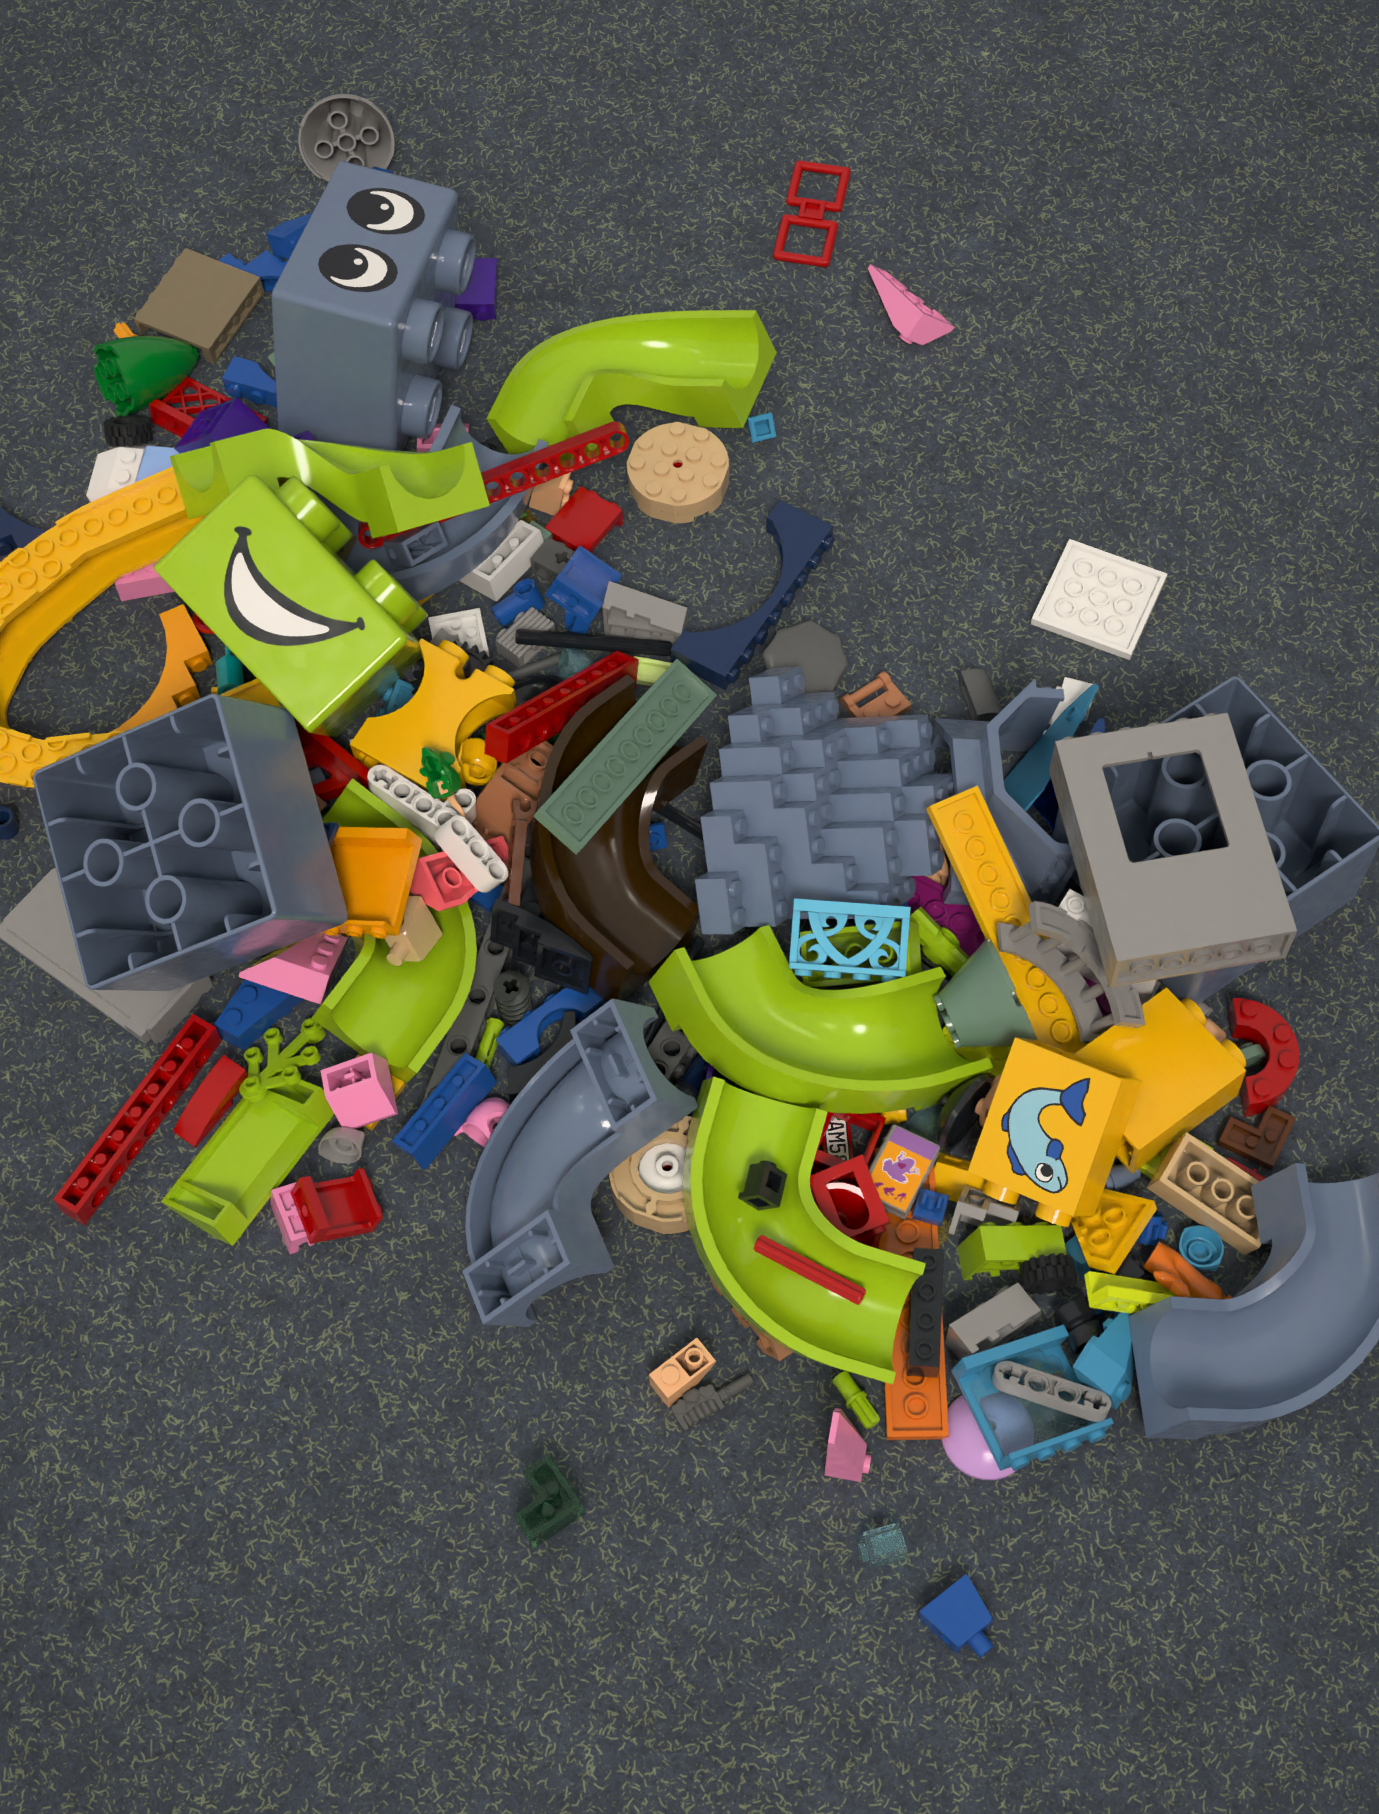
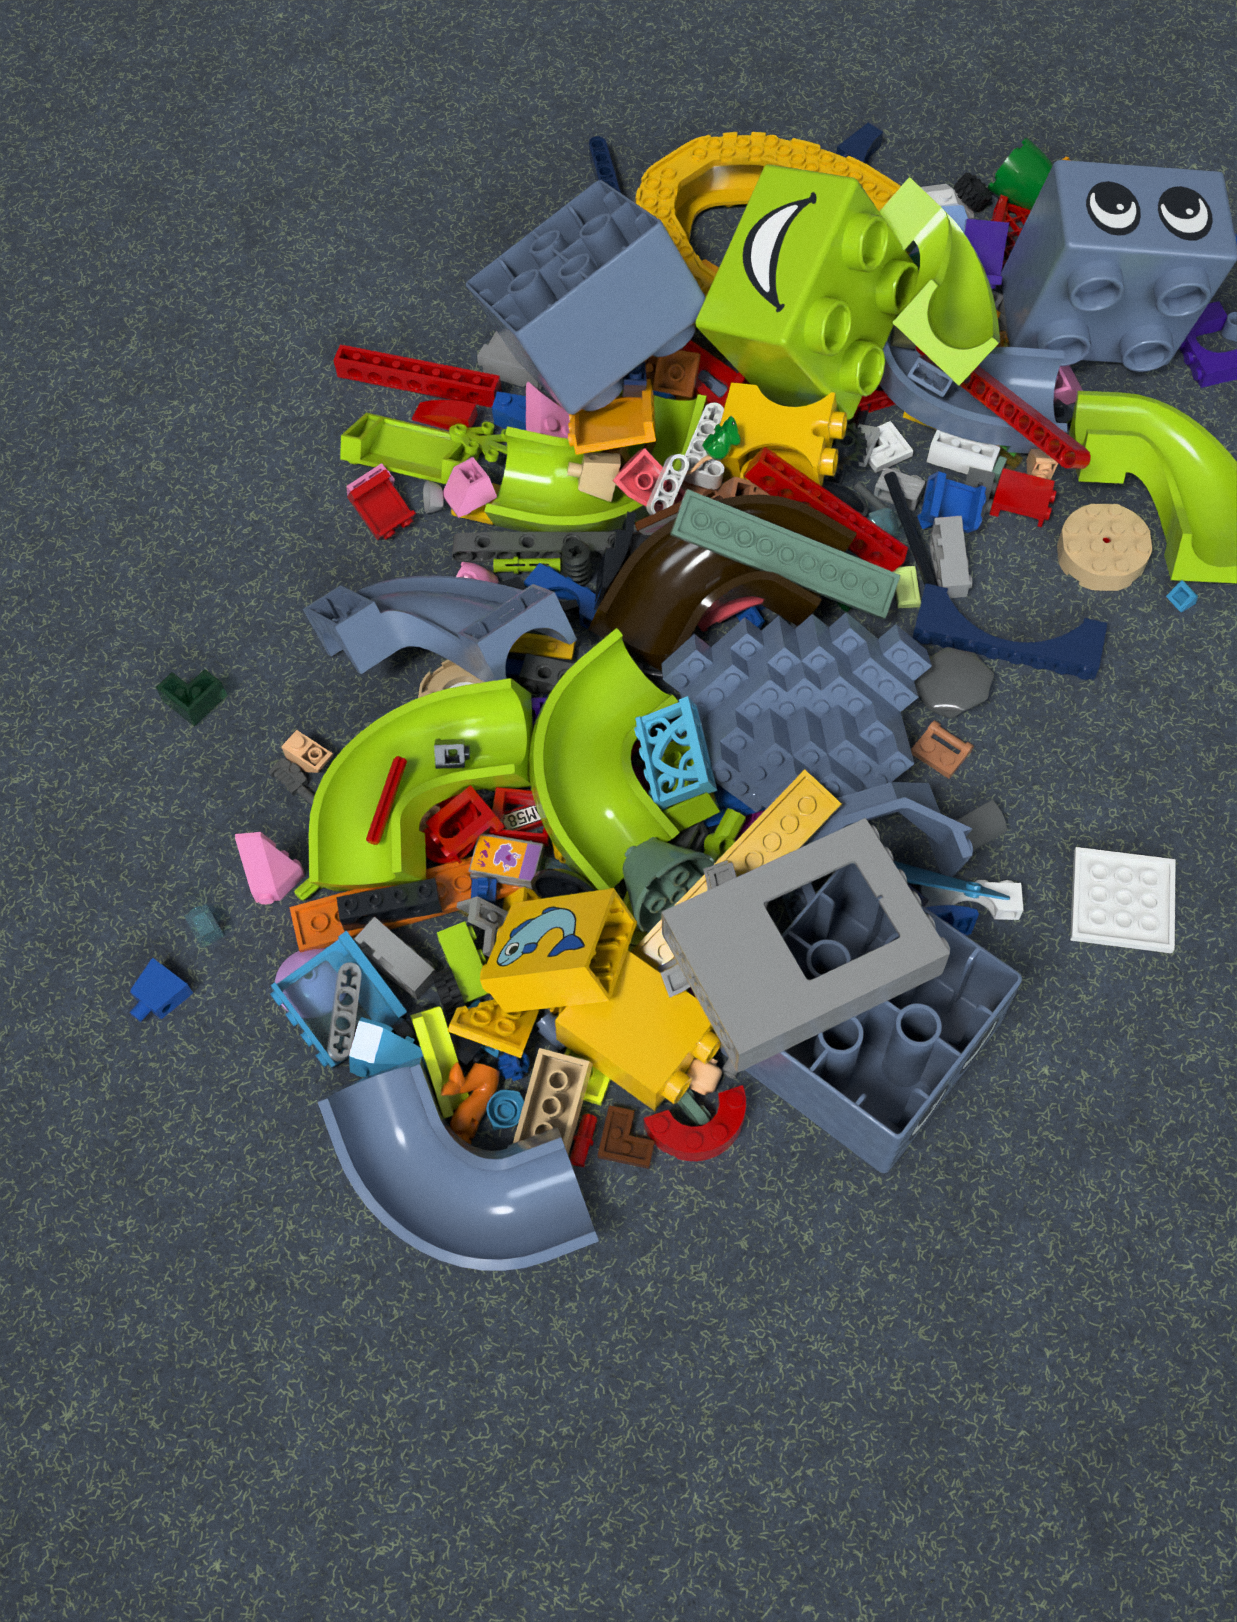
camera: 75 degrees right, 0 degrees up
(445, 1110) = (471, 546): blue panel -> none
(525, 596) = (923, 469): blue piece -> none

